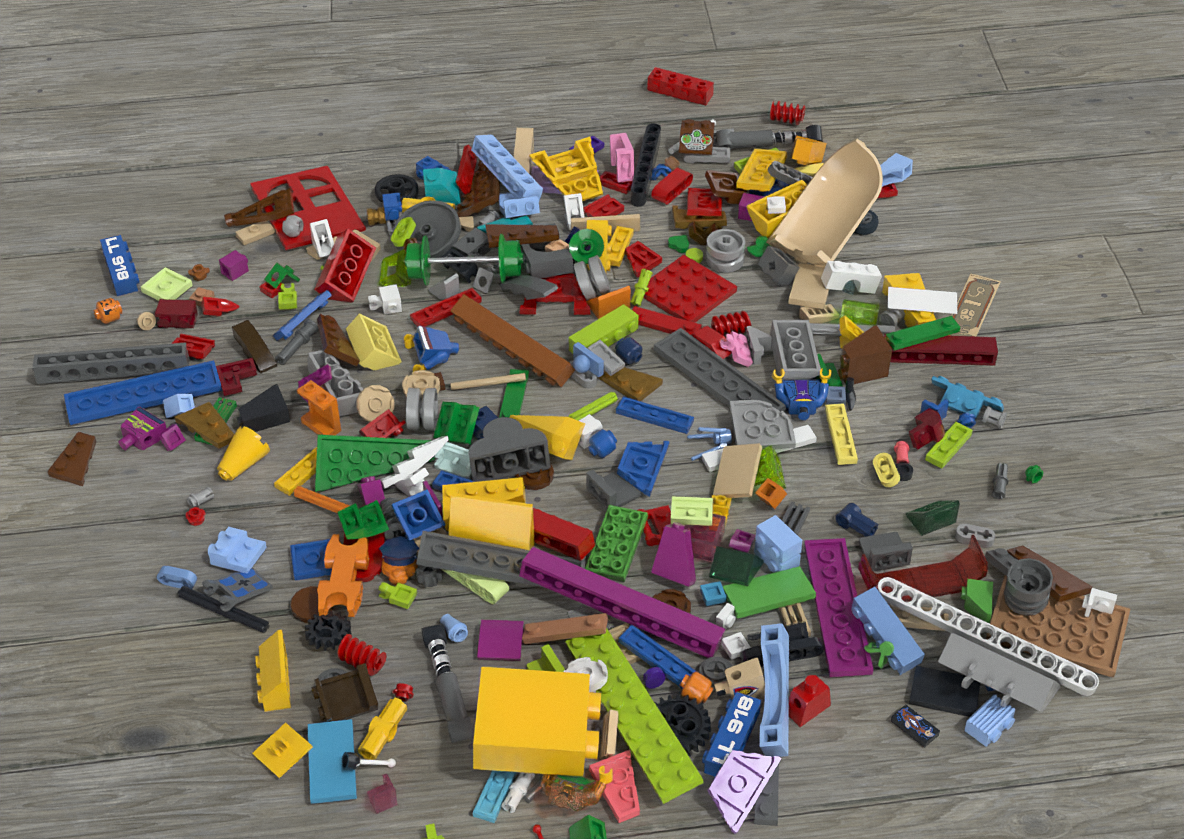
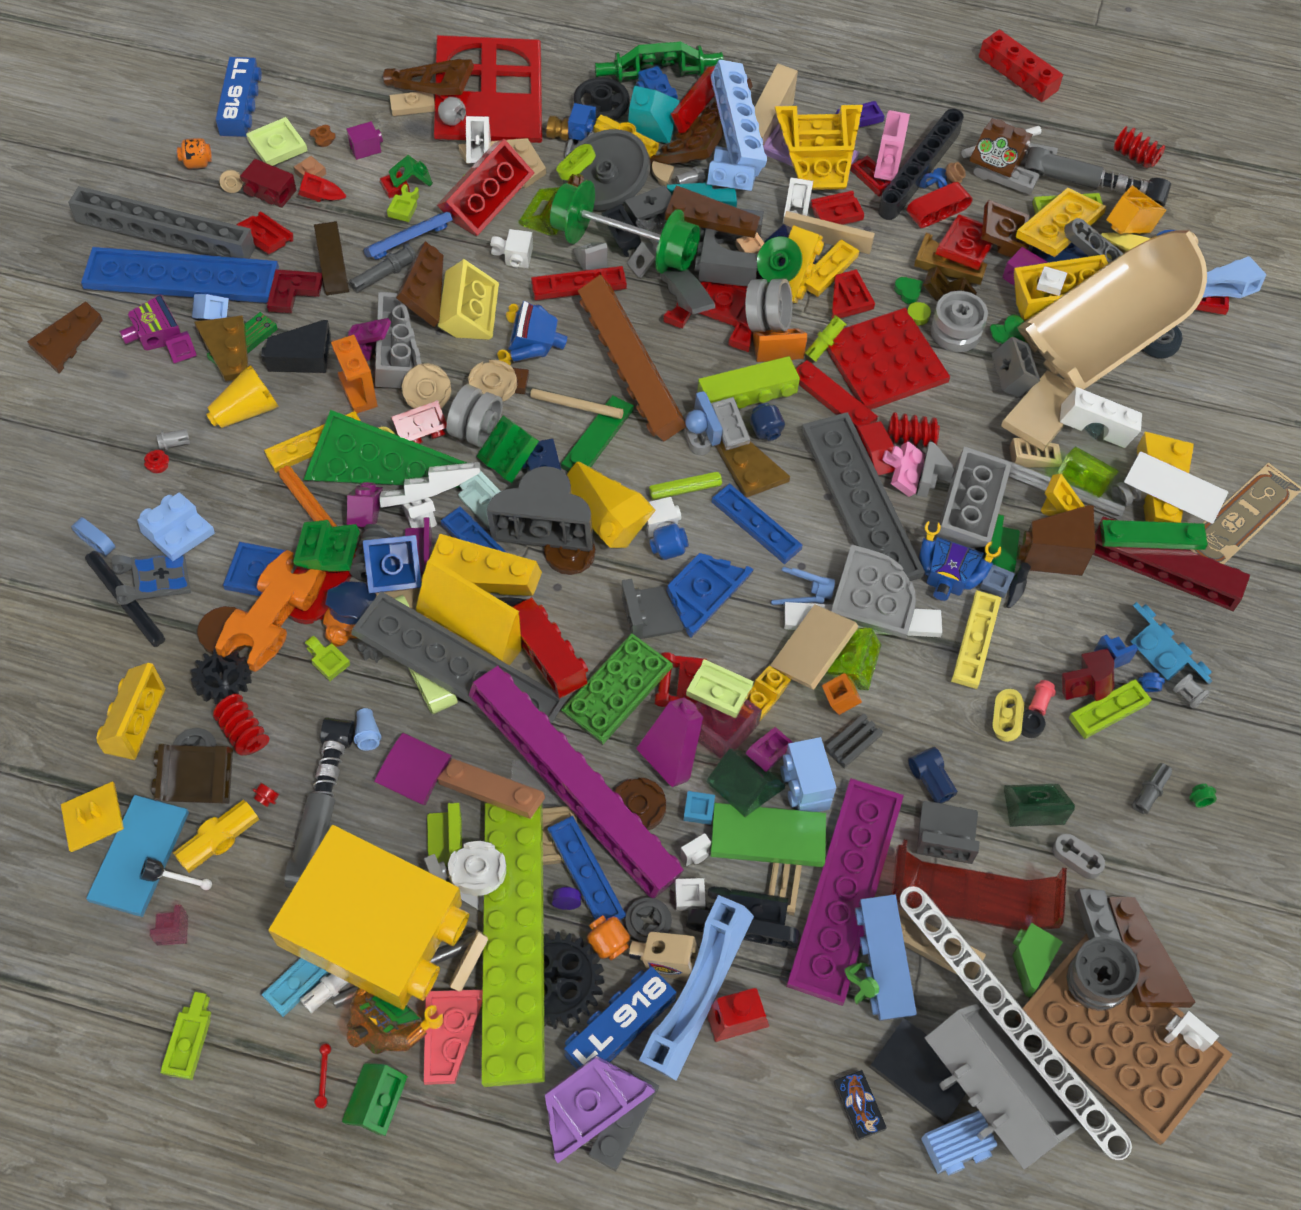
camera: 20 degrees right, 15 degrees up
(423, 148) = (658, 53): none -> green plate

